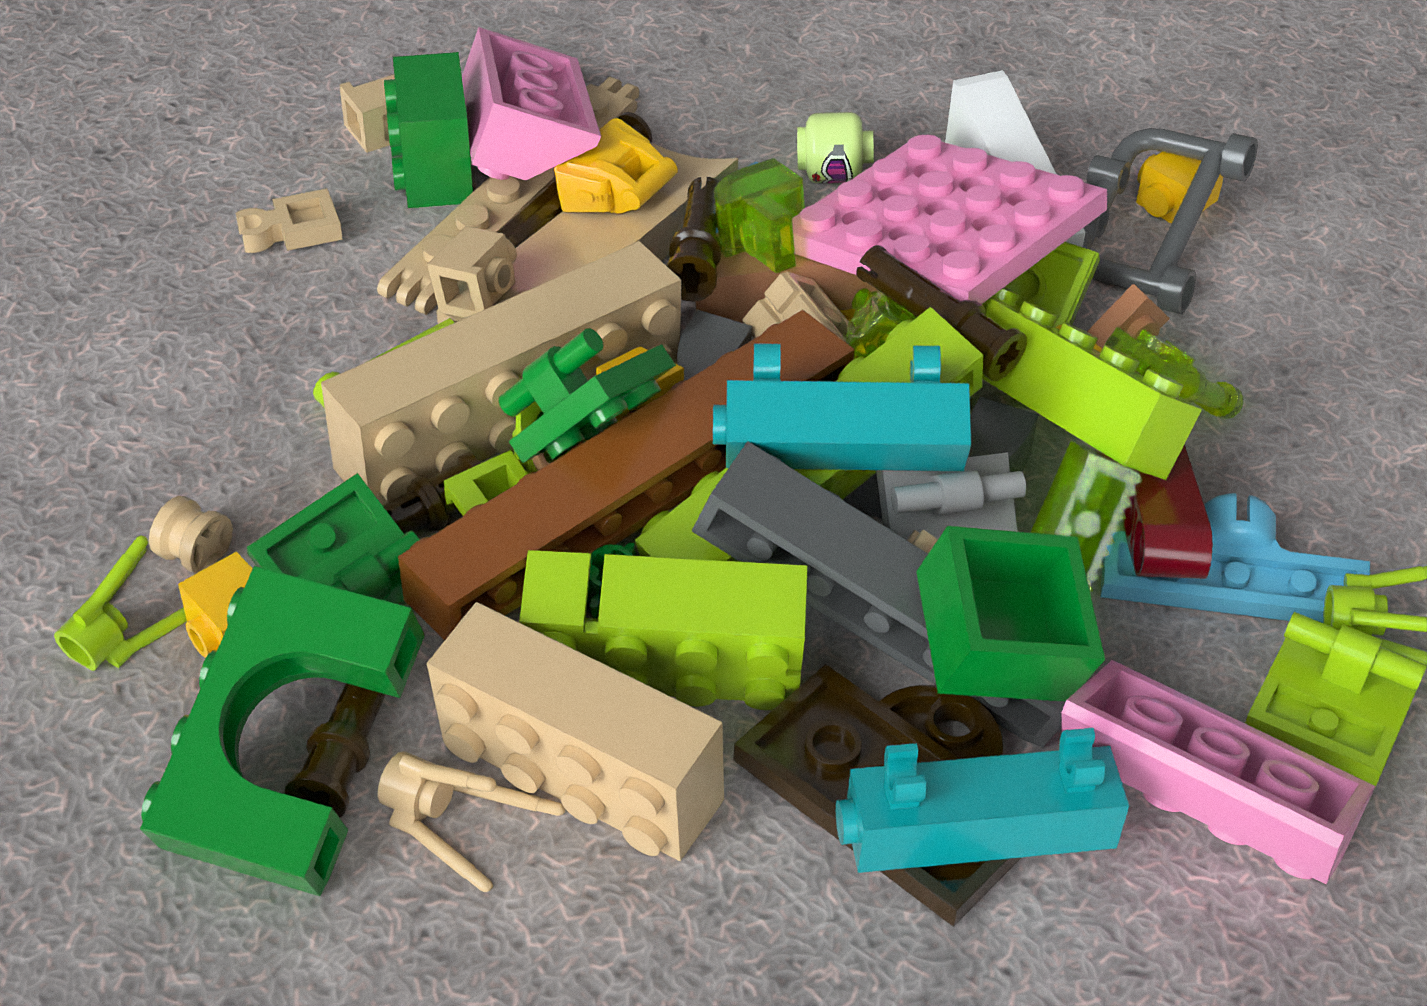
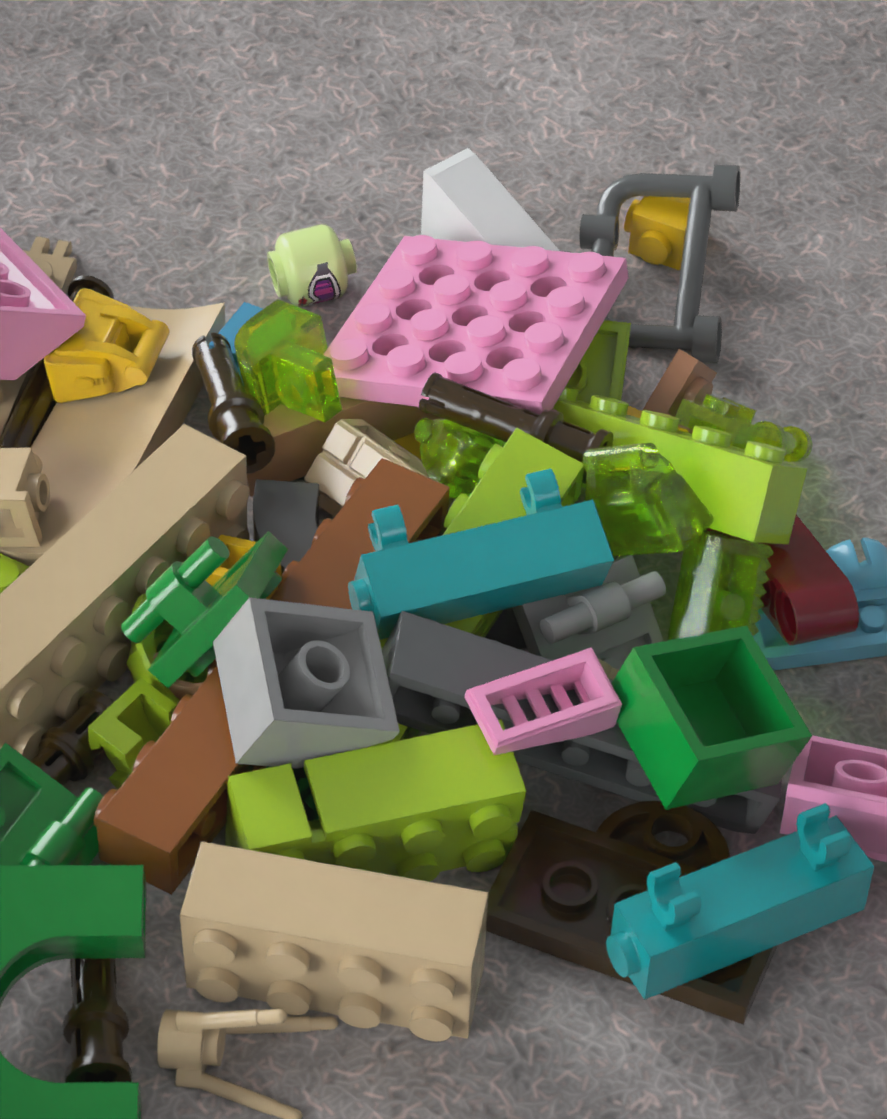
camera: 20 degrees left, 0 degrees up
(628, 481) = (302, 682): none -> light grey slope
(873, 539) = (577, 671): none -> bright pink slope
(1026, 403) = (643, 508): none -> clear neon green piece

